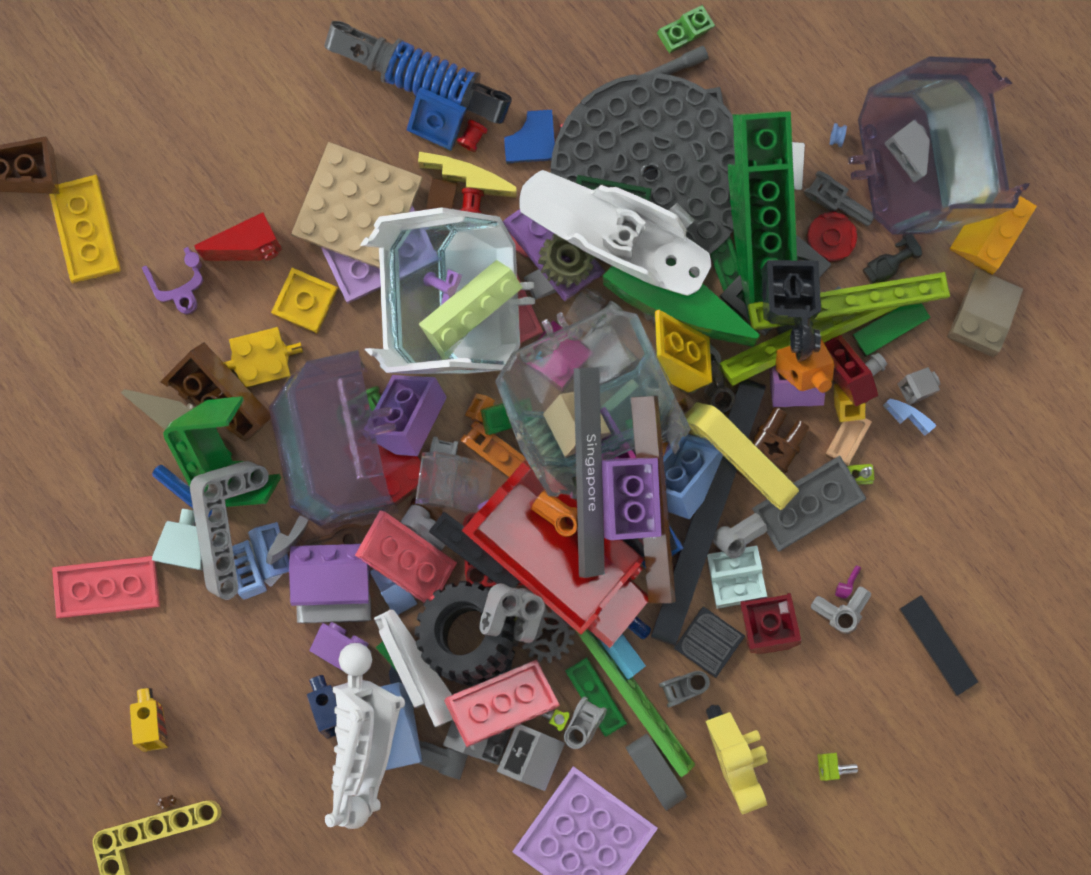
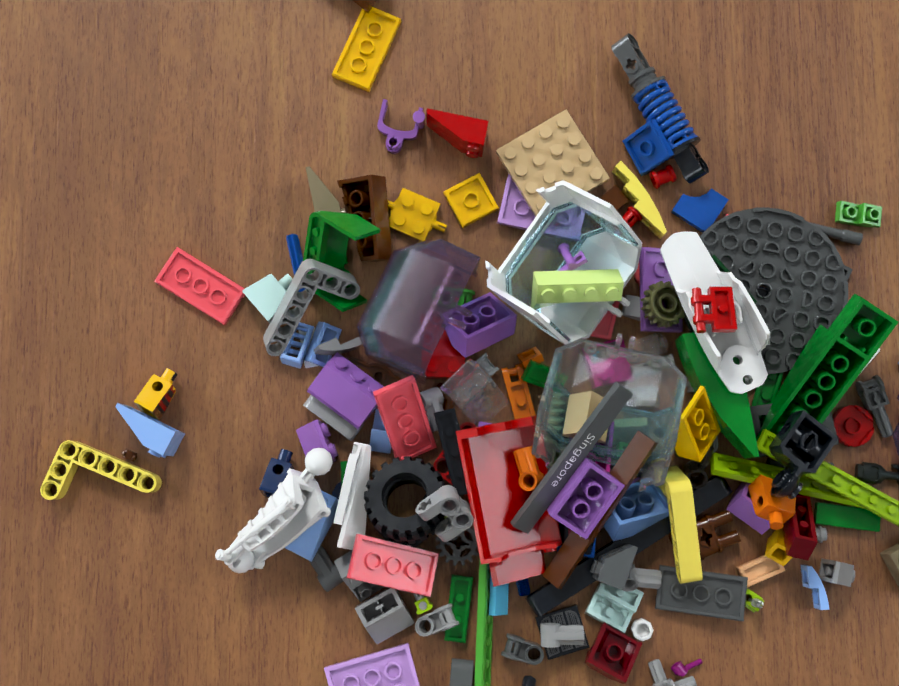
camera: 35 degrees right, 0 degrees up
(181, 760) = (152, 433): none -> light blue slope
(616, 226) = (721, 309): none -> red plate
(705, 647) = (554, 635): none -> light grey piece
(707, 541) = (614, 566): none -> dark grey slope
(781, 581) = (642, 629): none -> white tile

